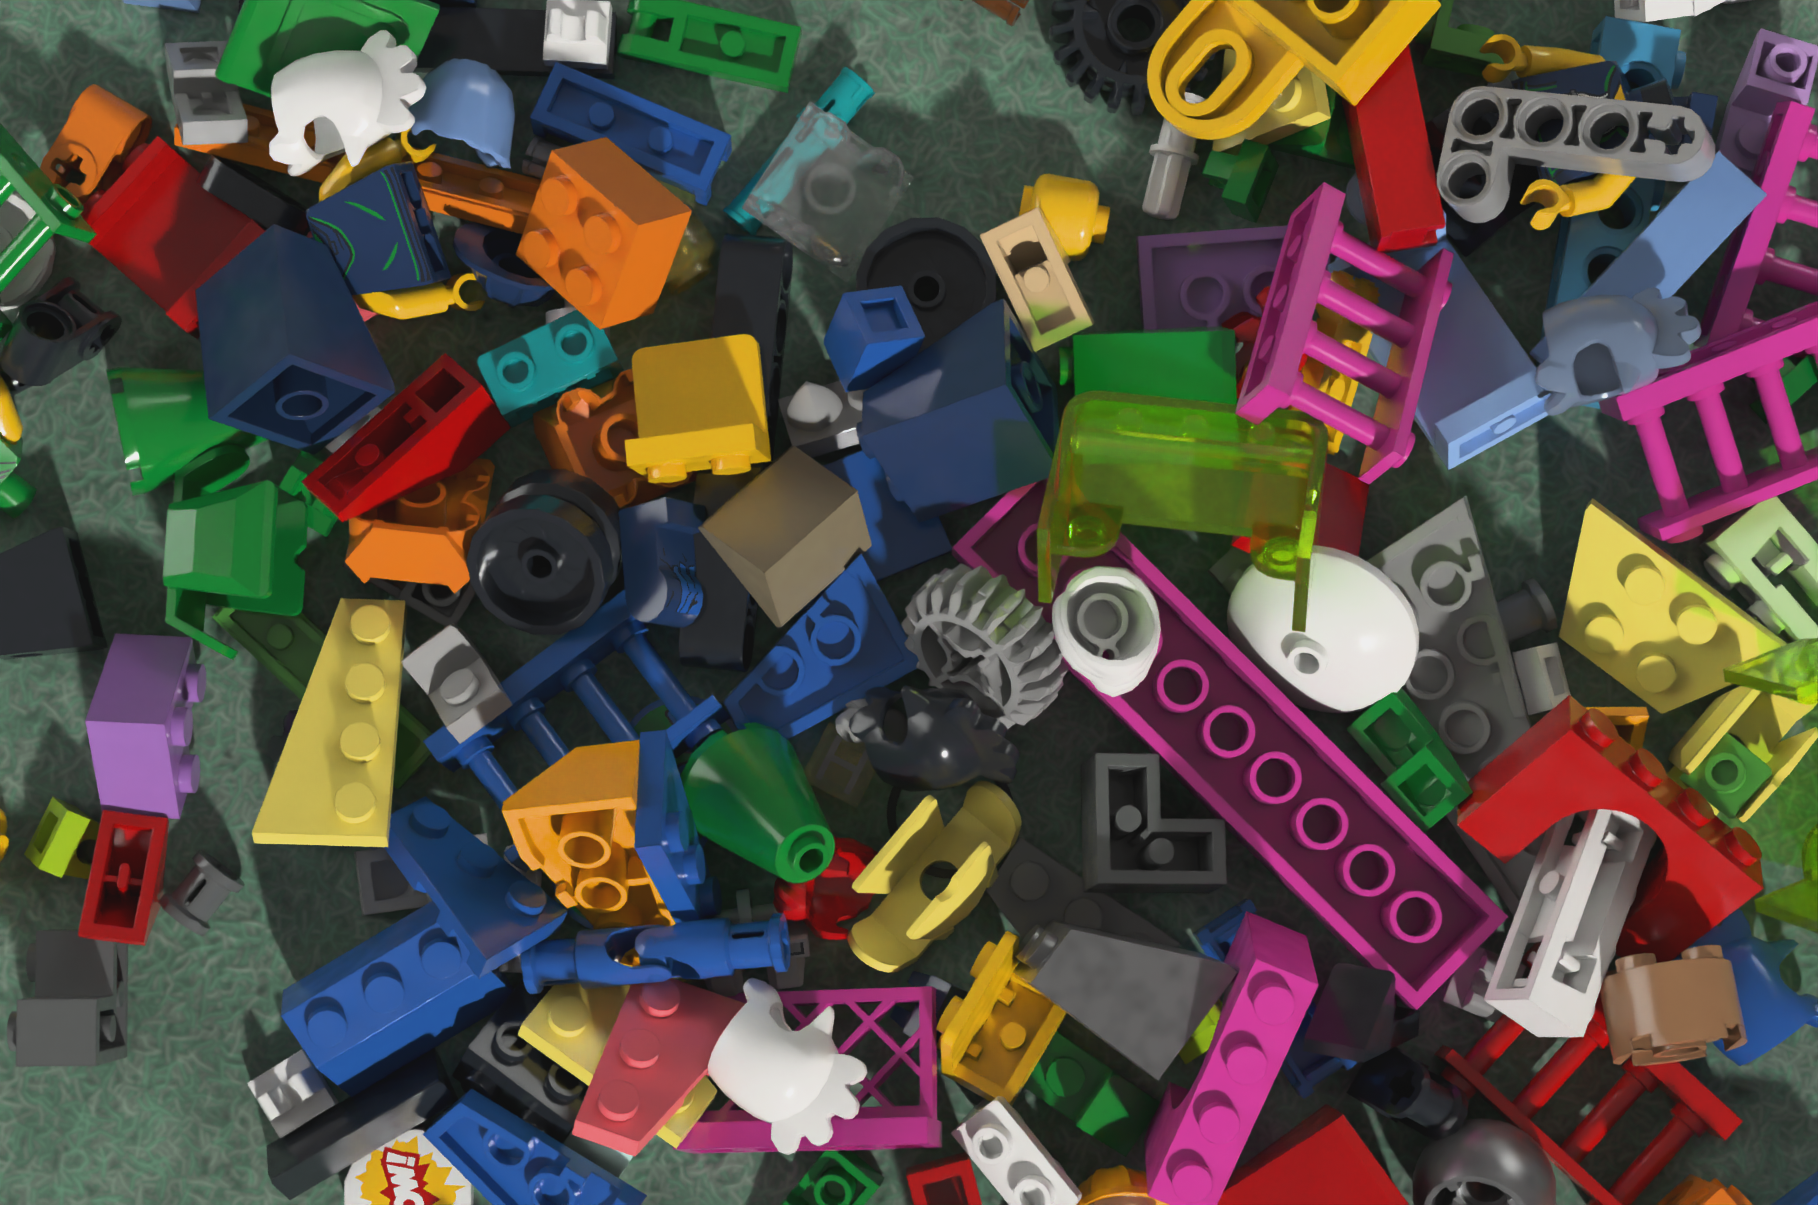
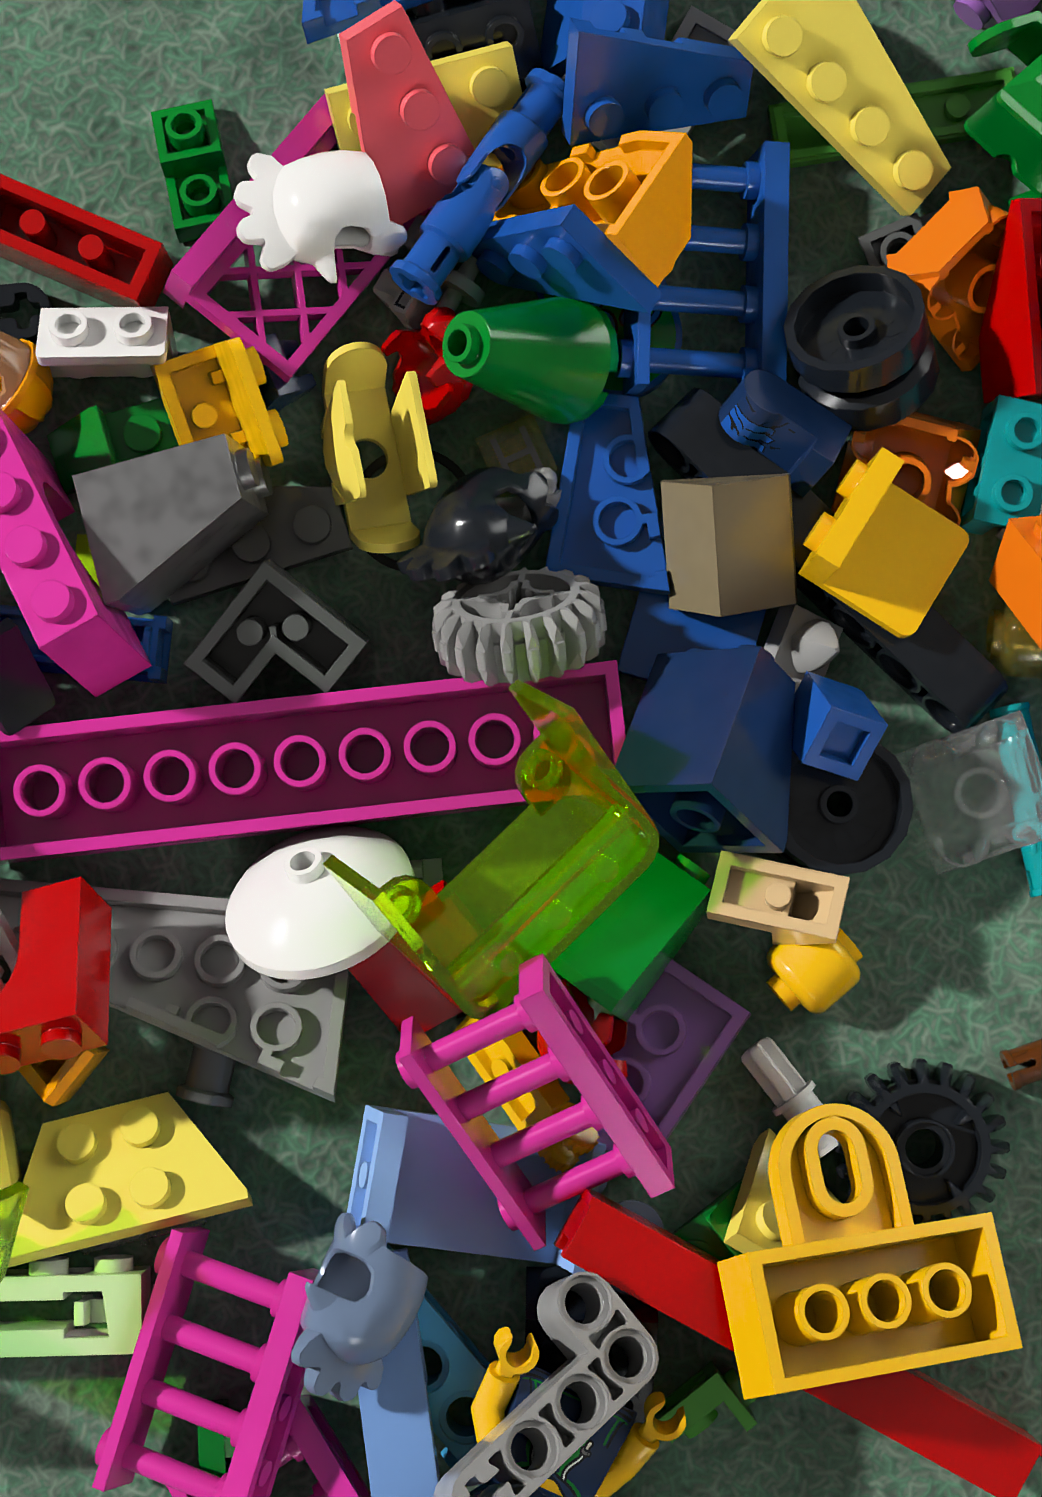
camera: 130 degrees right, 0 degrees up
(457, 681) = (815, 205): light grey slope -> none
(1109, 613) = (468, 733): white hair -> none
(1243, 177) = (729, 1137): green tile -> none
(1413, 757) = (174, 895): green slope -> none
(1541, 677) = (145, 1050): white tile -> none

